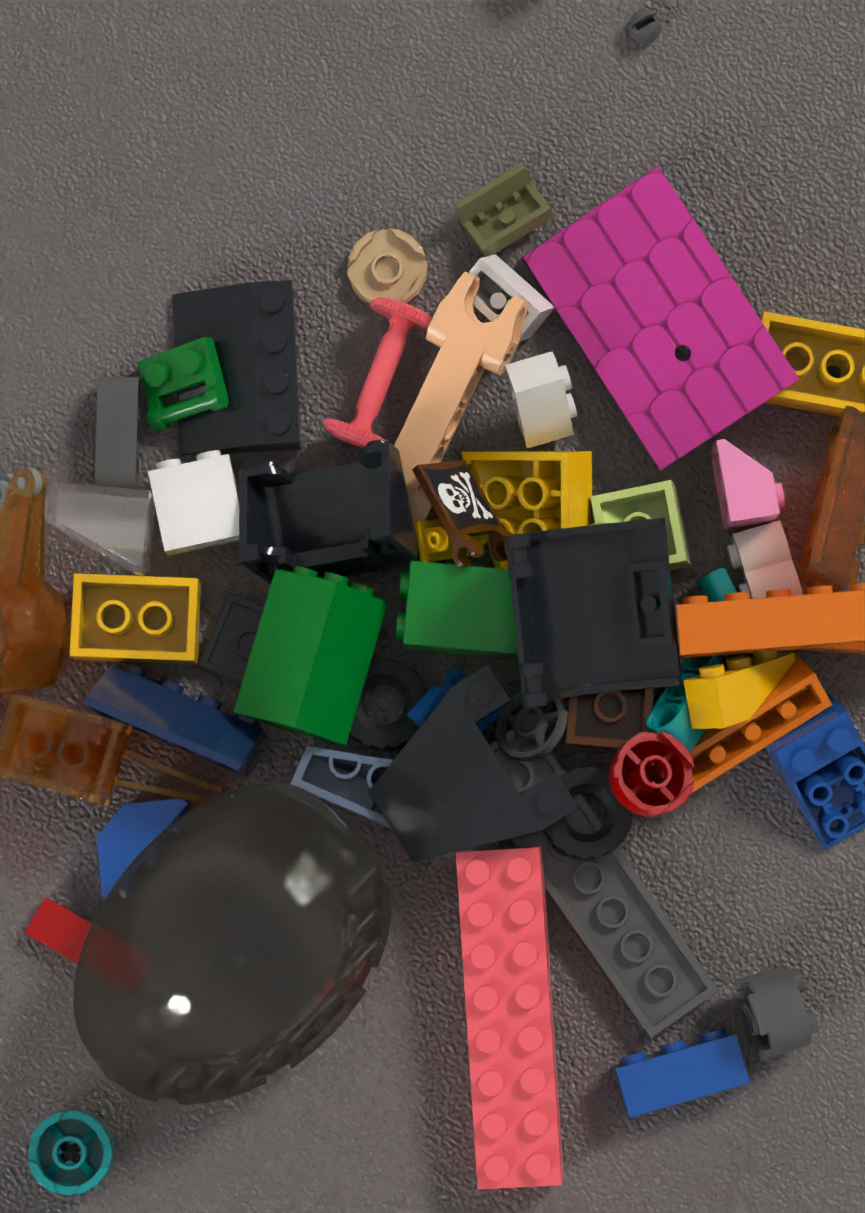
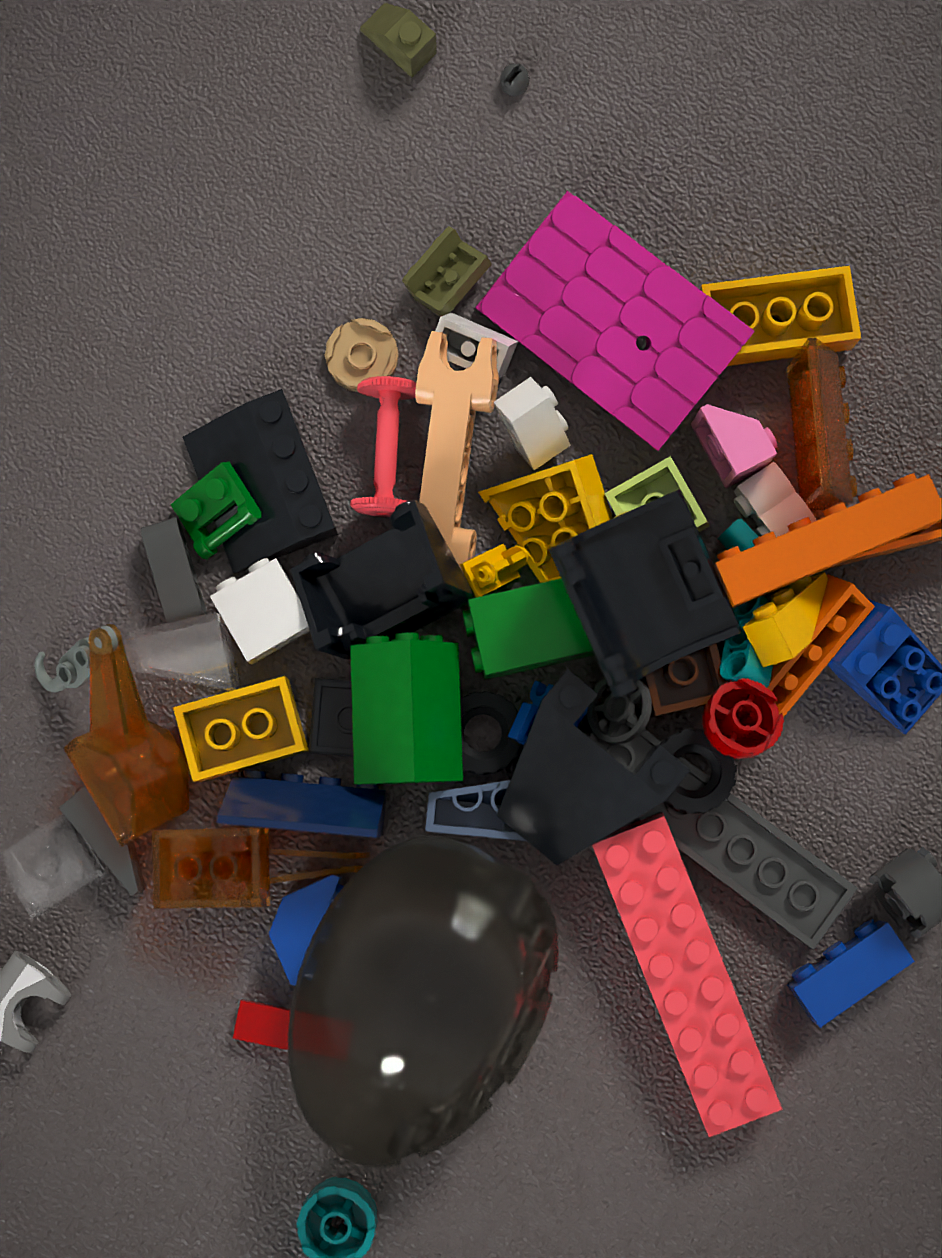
camera: 20 degrees left, 0 degrees up
(462, 509) = (498, 541): flag -> none

